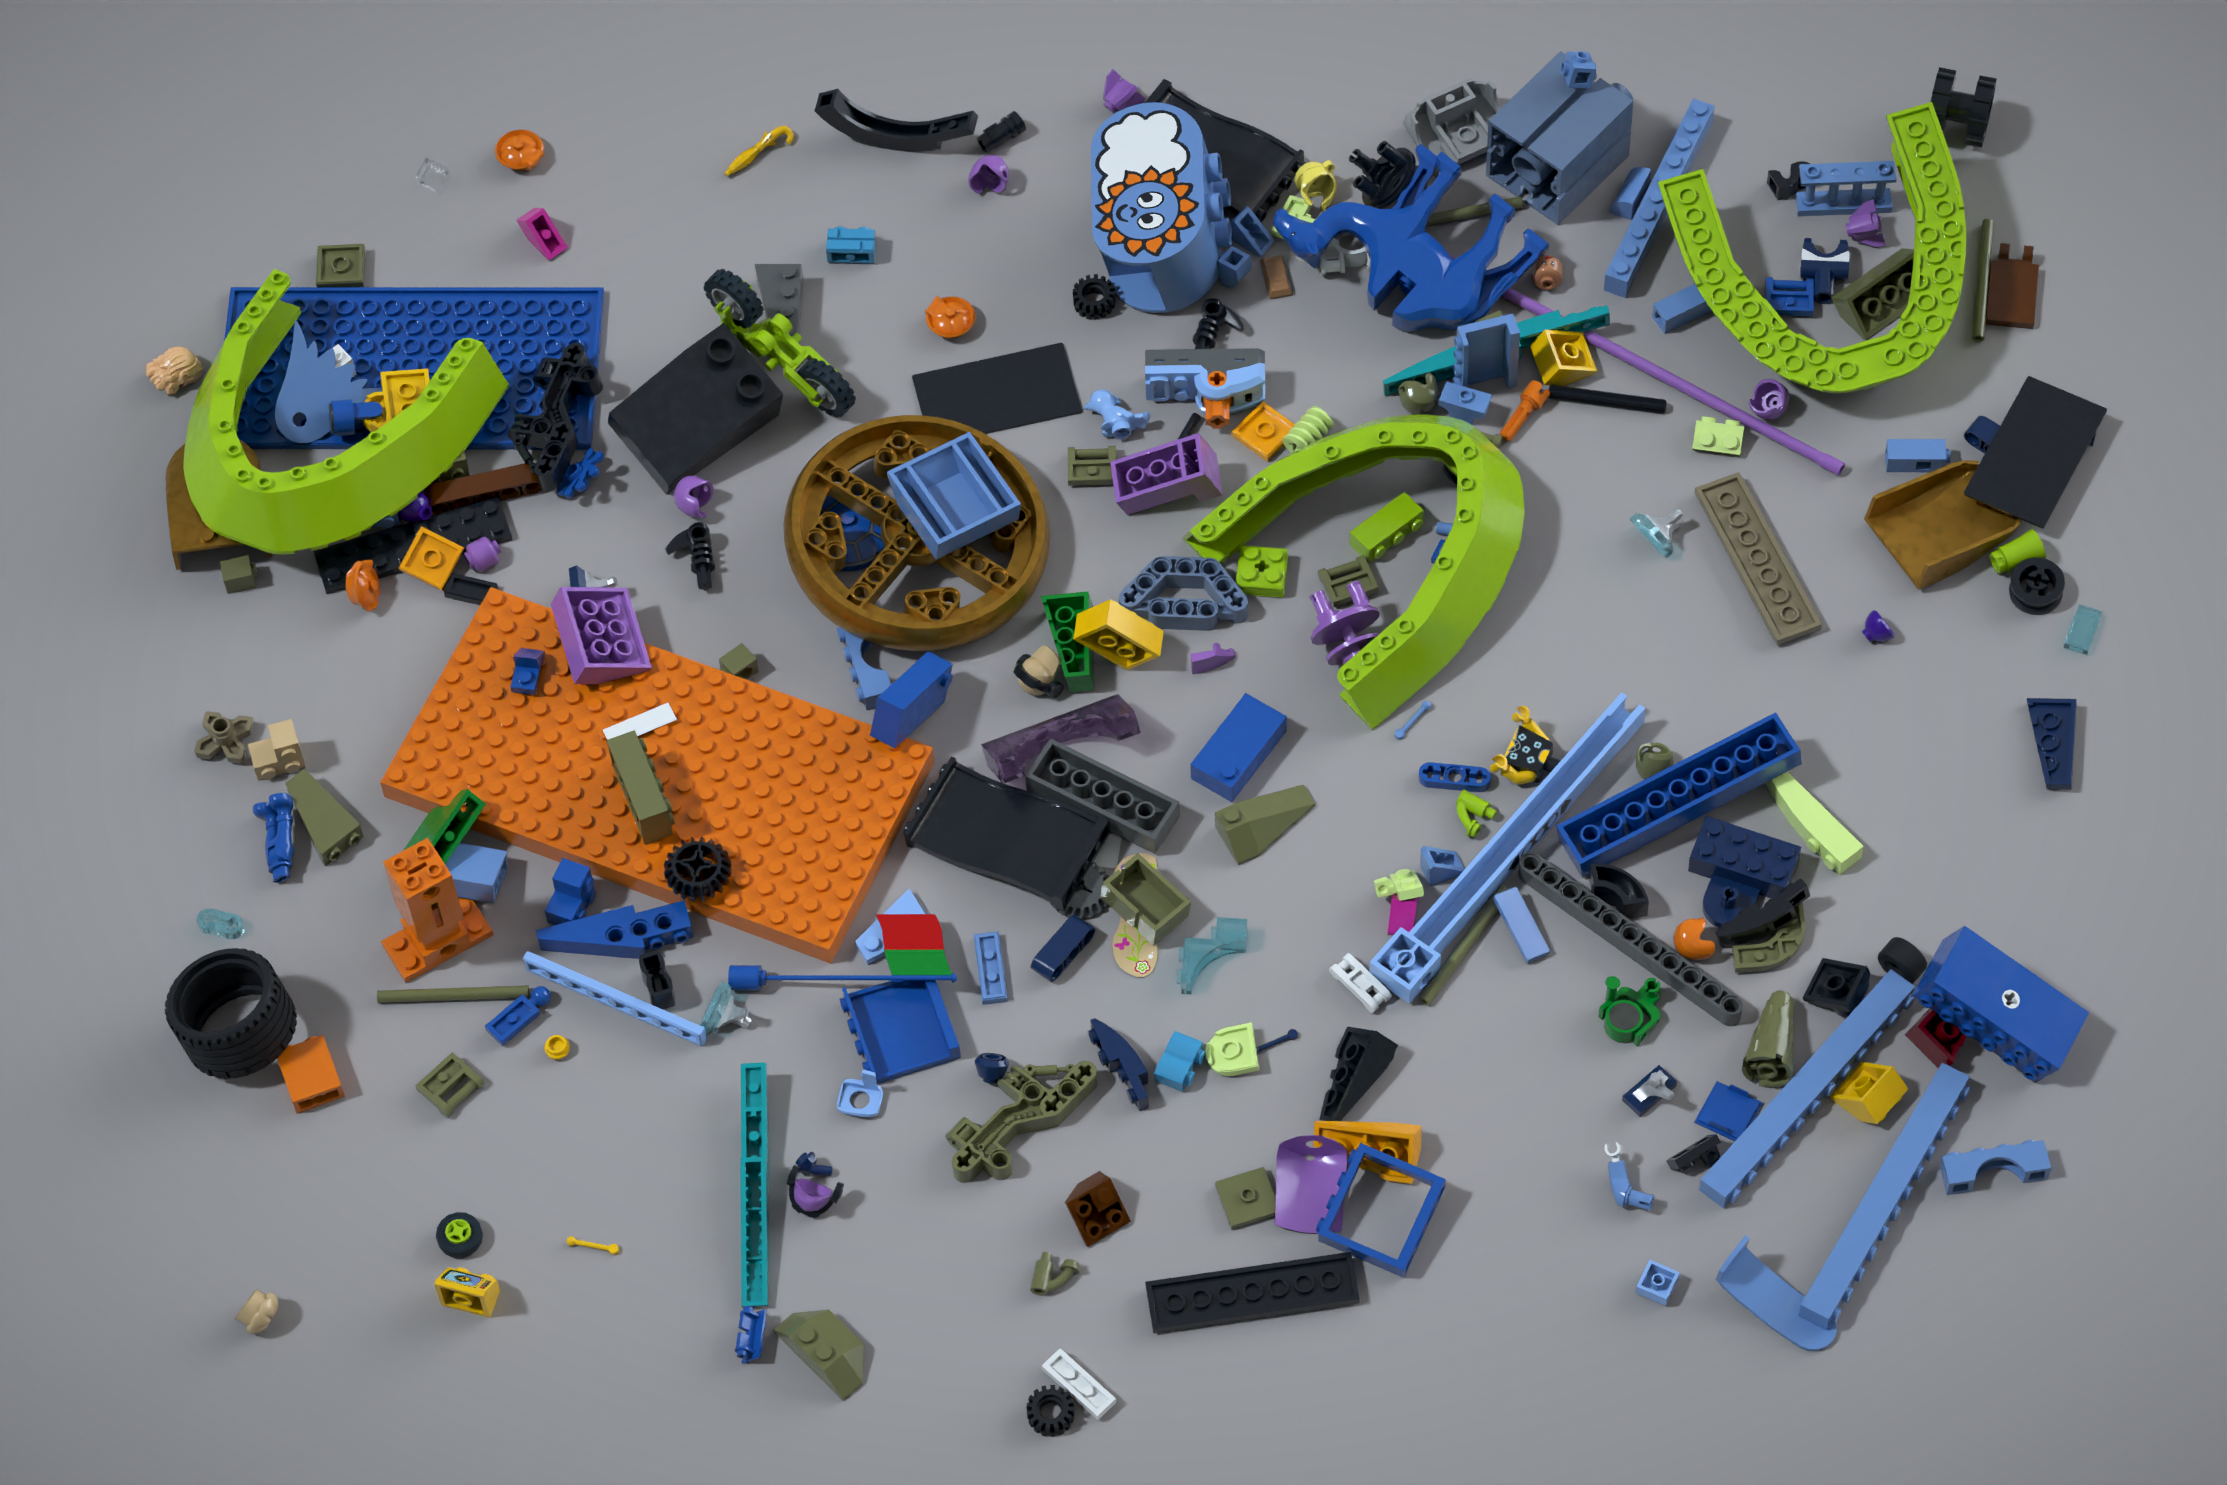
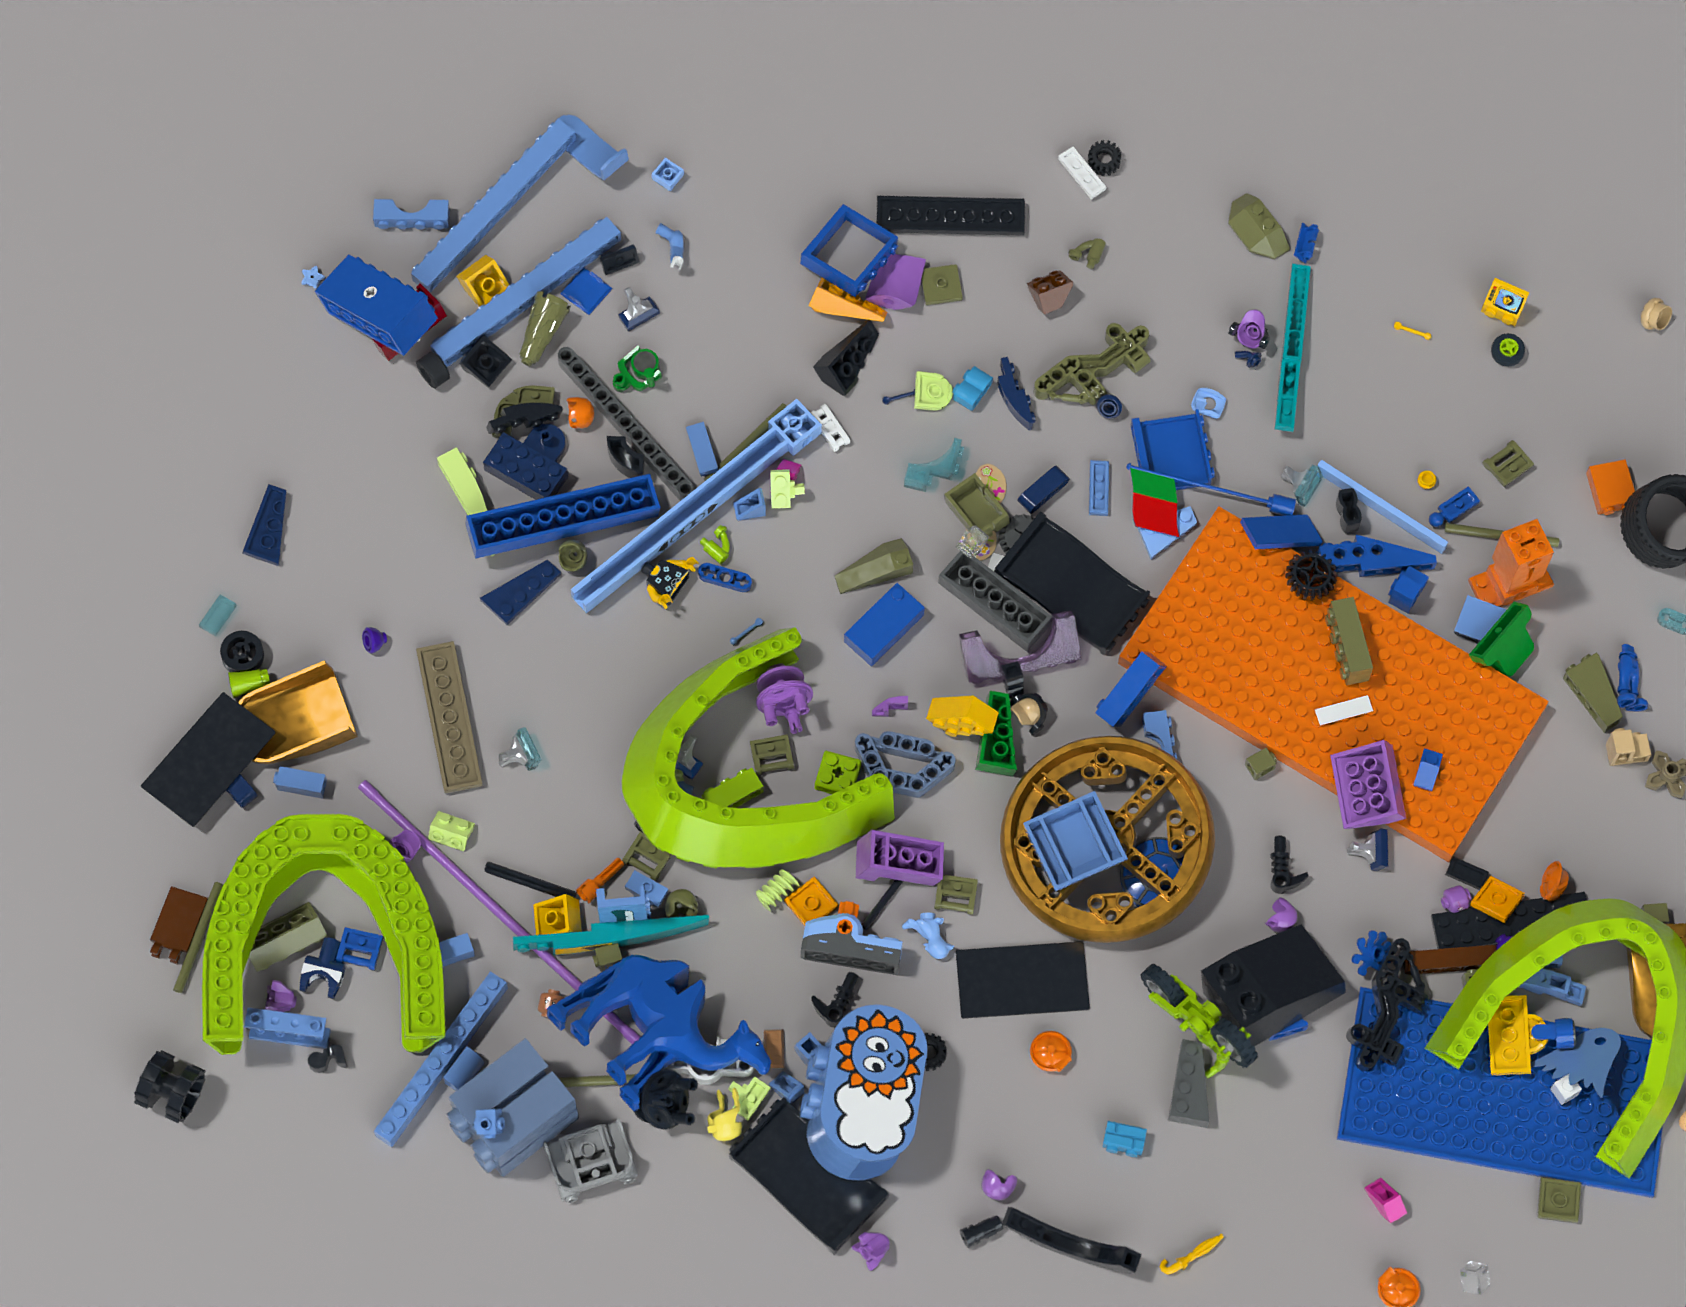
camera: 175 degrees left, 10 degrees up
(742, 929) = (1281, 531): none -> blue tile
(1062, 699) = (1013, 679): none -> black leg
(1143, 840) = (972, 541): none -> clear panel
(1711, 717) = (519, 592): none -> dark blue wing
(2100, 1070) = (312, 281): none -> light blue plate

